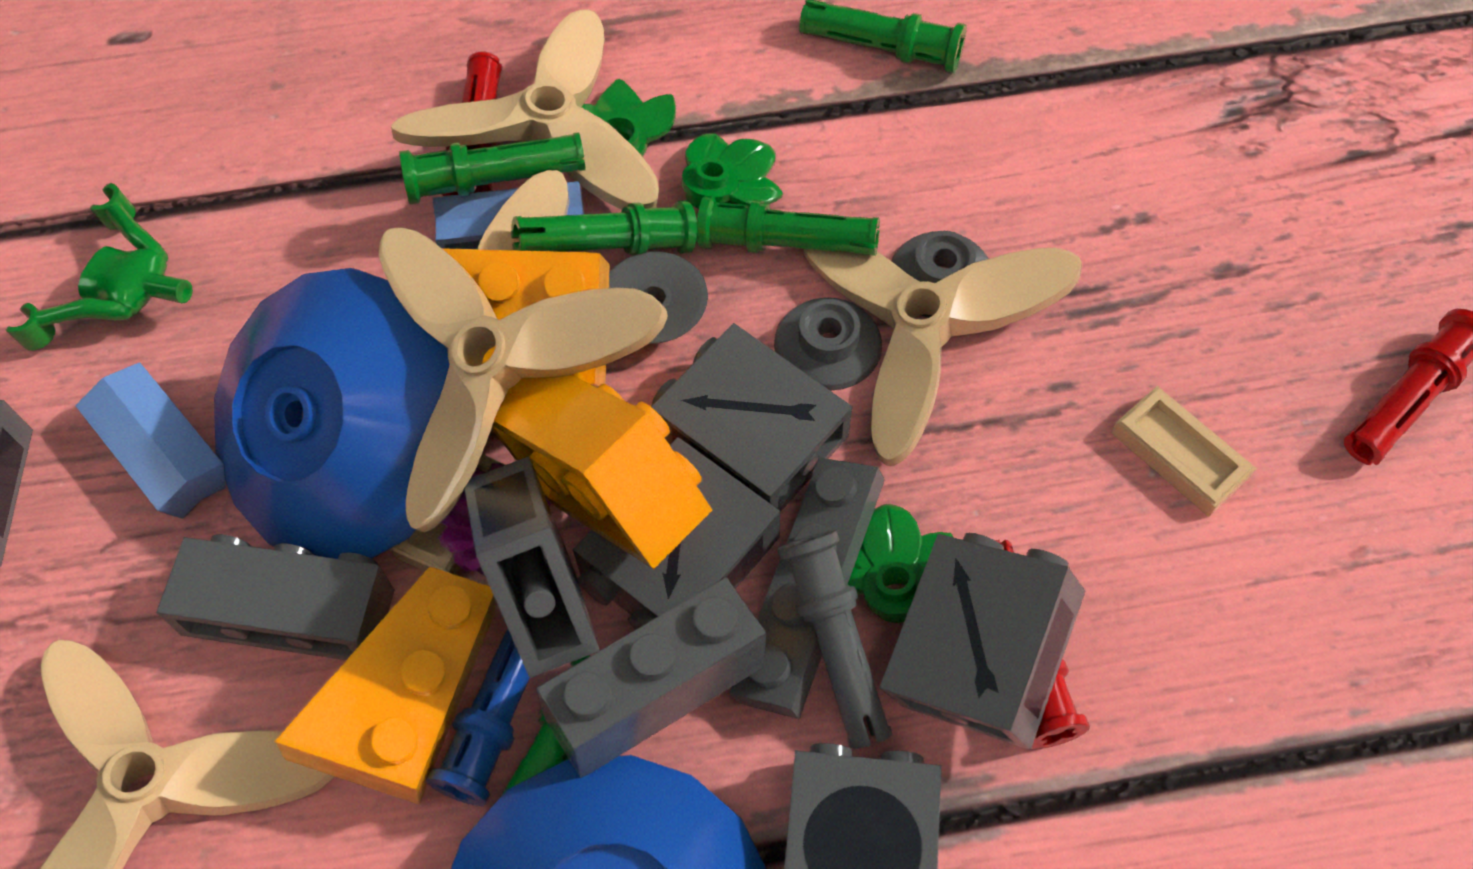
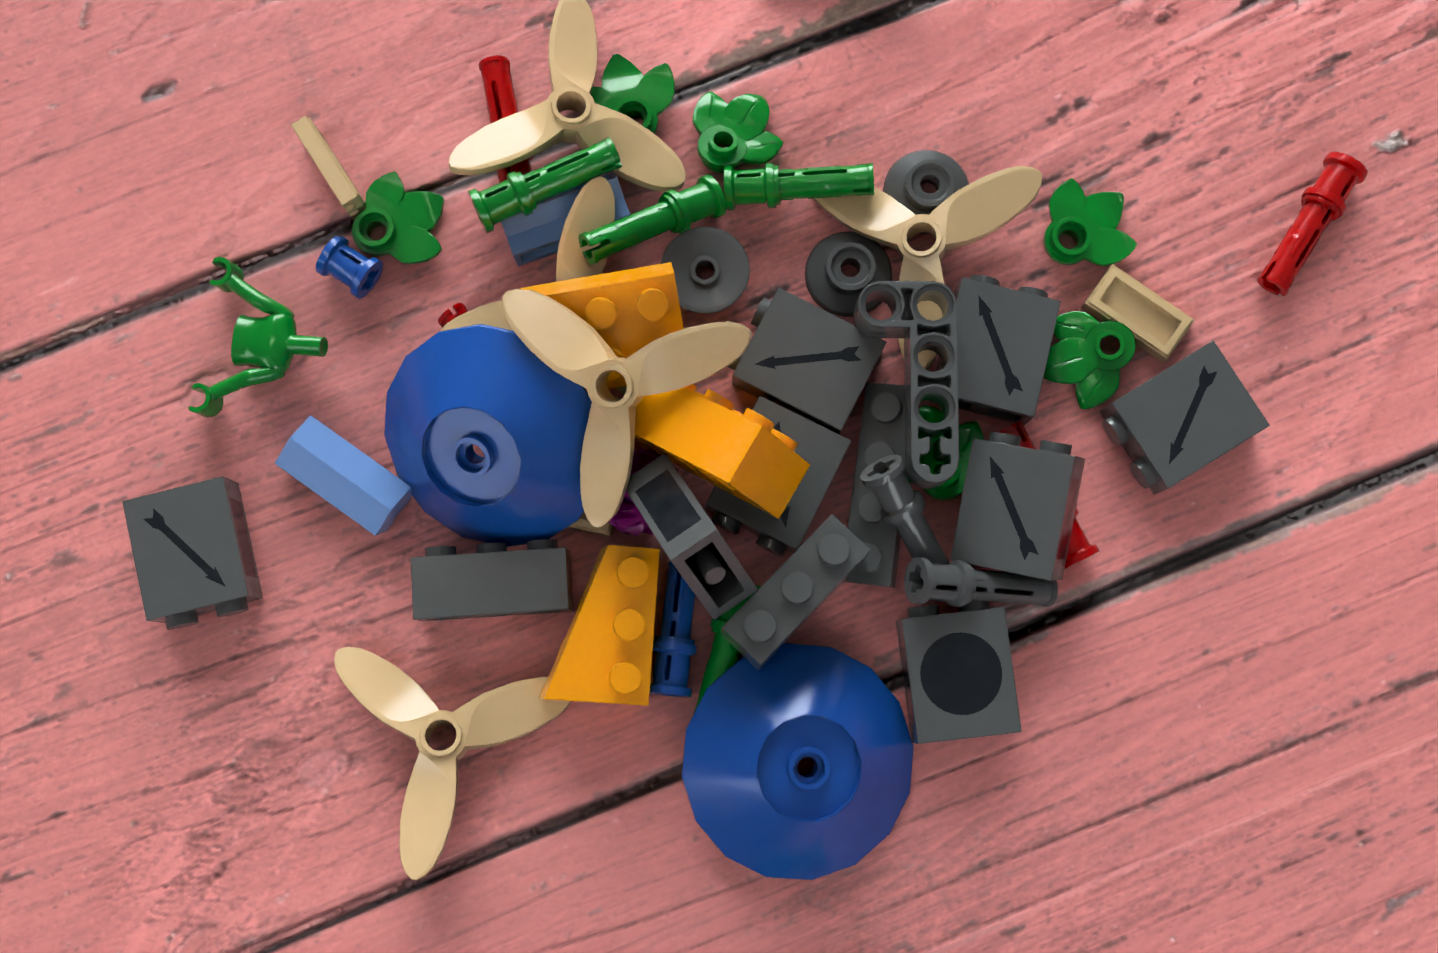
camera: 15 degrees left, 20 degrees up
(251, 223) = (349, 266): none -> blue bush
(270, 125) = (329, 166): none -> tan tile
(324, 193) = (406, 219): none -> green plate
(882, 725) = (961, 583): none -> dark grey pin
(887, 454) = (919, 383): none -> dark grey beam
(987, 451) = (1002, 347): none -> dark grey brick
(1101, 487) = (1082, 362): none -> green plate
(1134, 338) = (1090, 223): none -> green plate
(1228, 580) = (1183, 419): none -> dark grey brick

